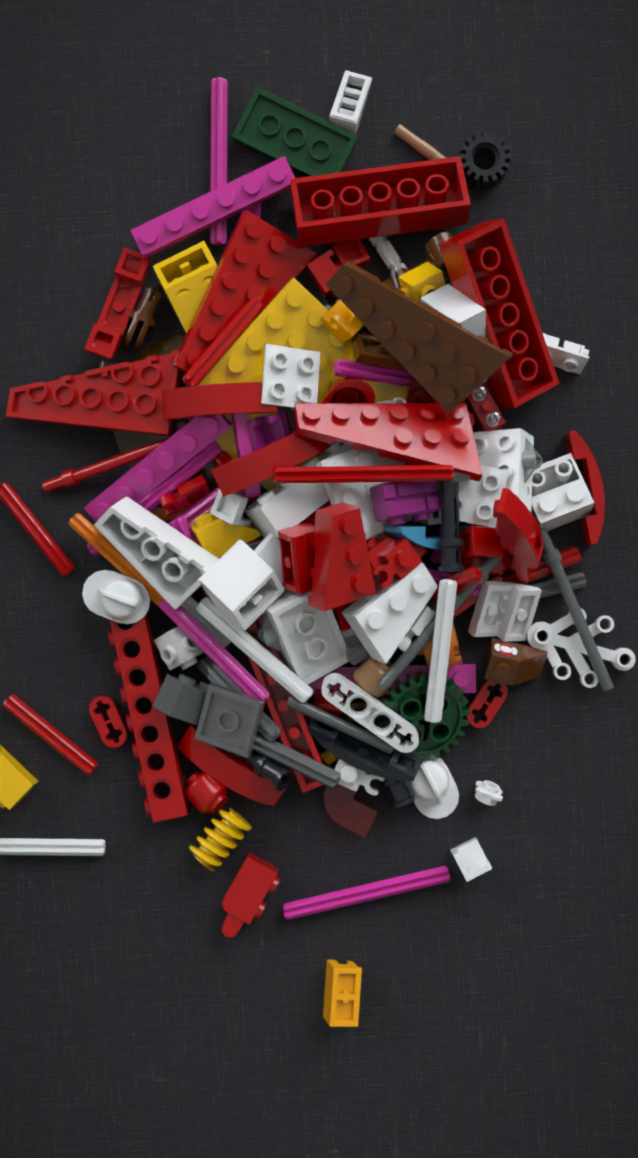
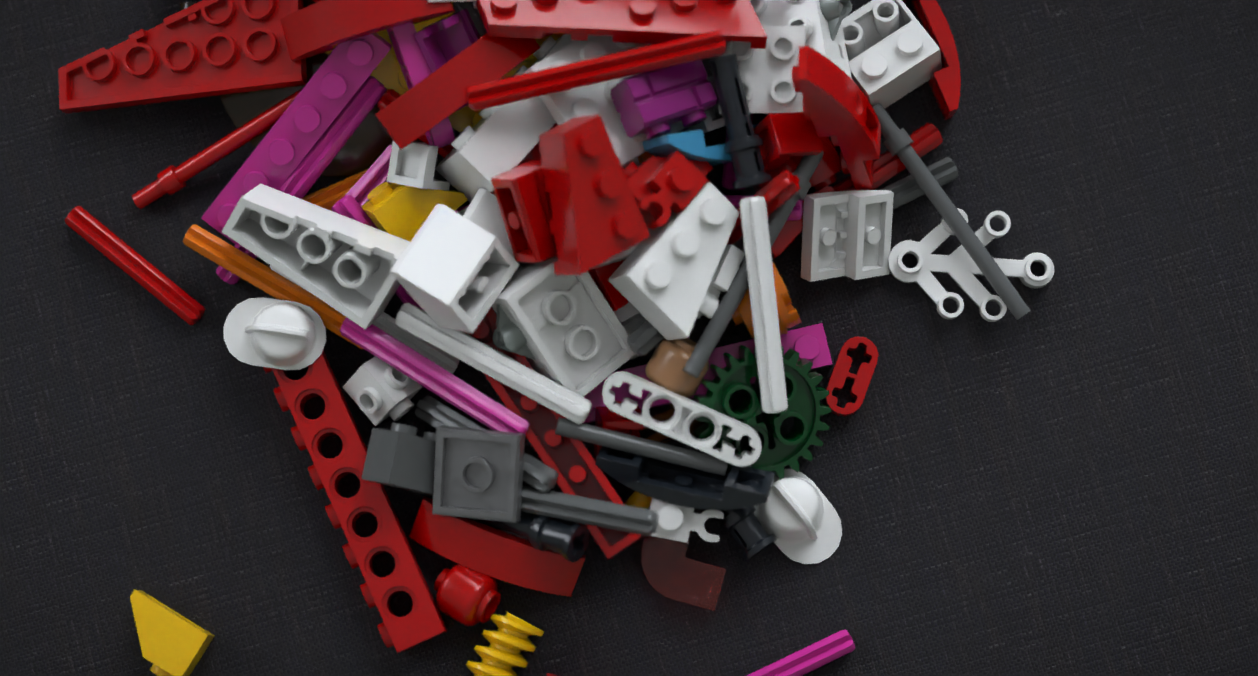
camera: 10 degrees left, 5 degrees down
(50, 734) = (217, 560): red axle -> none
(102, 724) = (309, 516): red beam -> none
(187, 495) = (348, 166): red plate -> none
(471, 859) = (878, 609): white panel -> none
(488, 792) = (882, 505): white plate -> none
(513, 662) = (877, 307): reddish brown slope -> none

